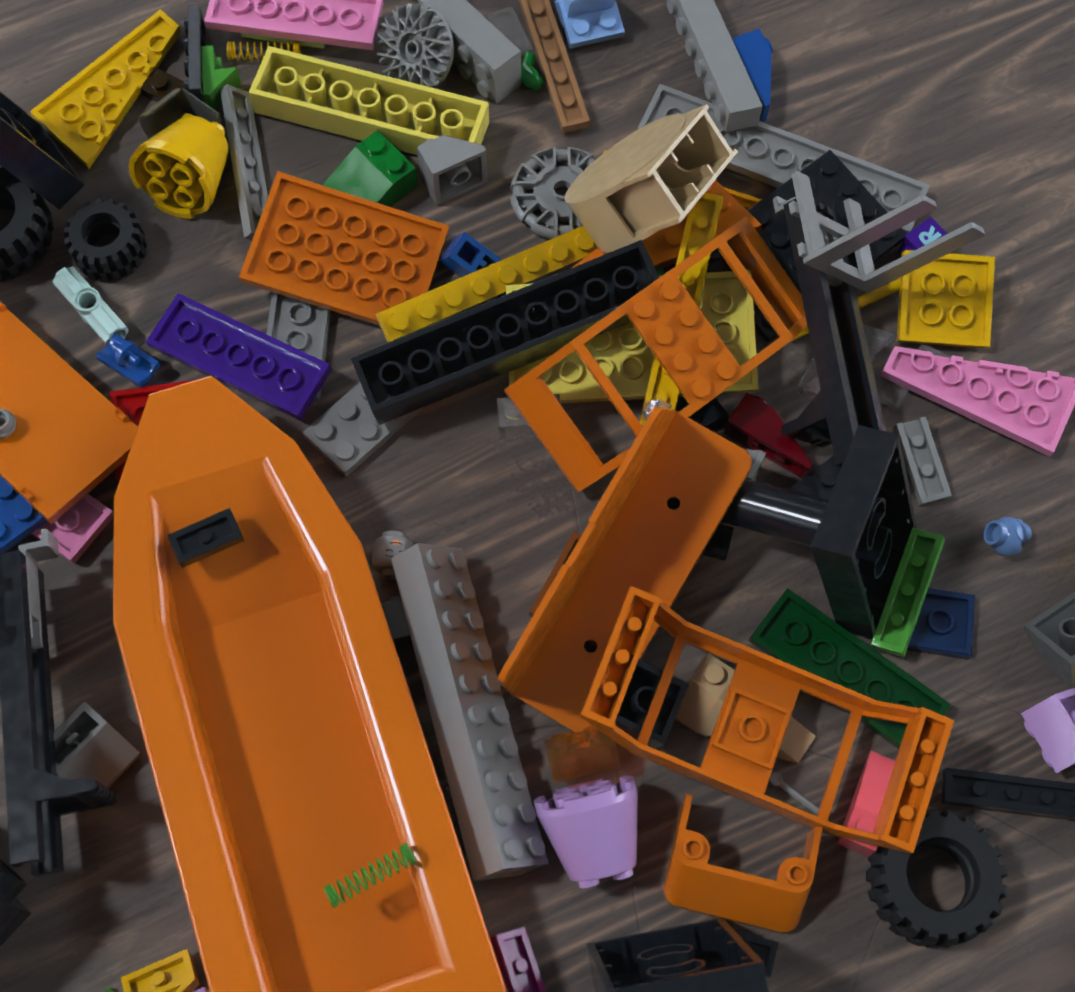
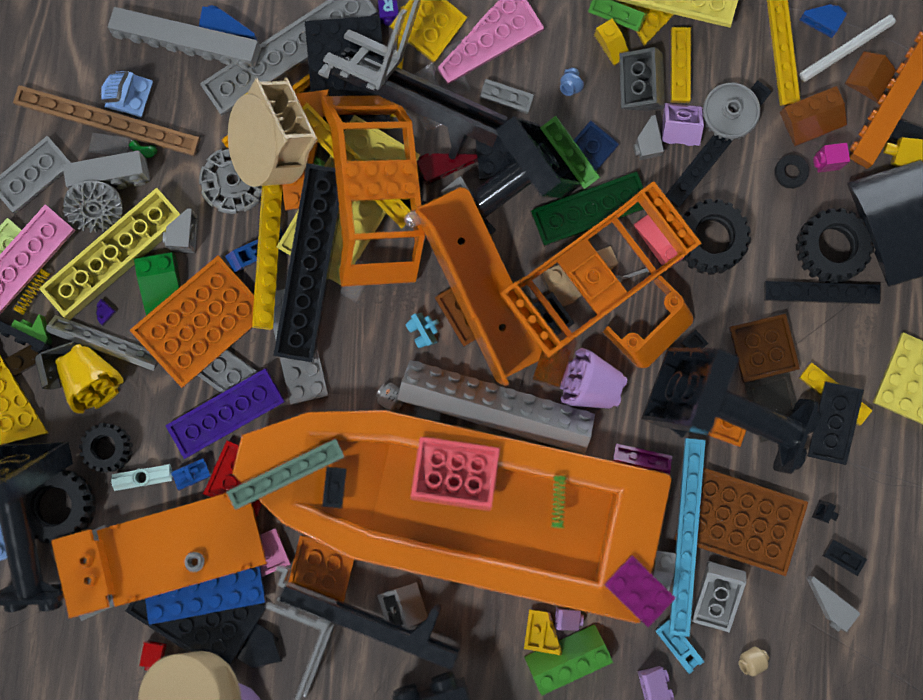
camera: 60 degrees left, 15 degrees up
(80, 610) = (321, 568): none -> orange plate
(186, 458) = (285, 474): none -> sand green plate
(289, 145) = (104, 312): none -> dark purple tile
(322, 692) = (455, 474): none -> coral slope
(521, 545) = (426, 328): none -> medium azure hips
(1006, 695) = (649, 141): none -> light grey slope

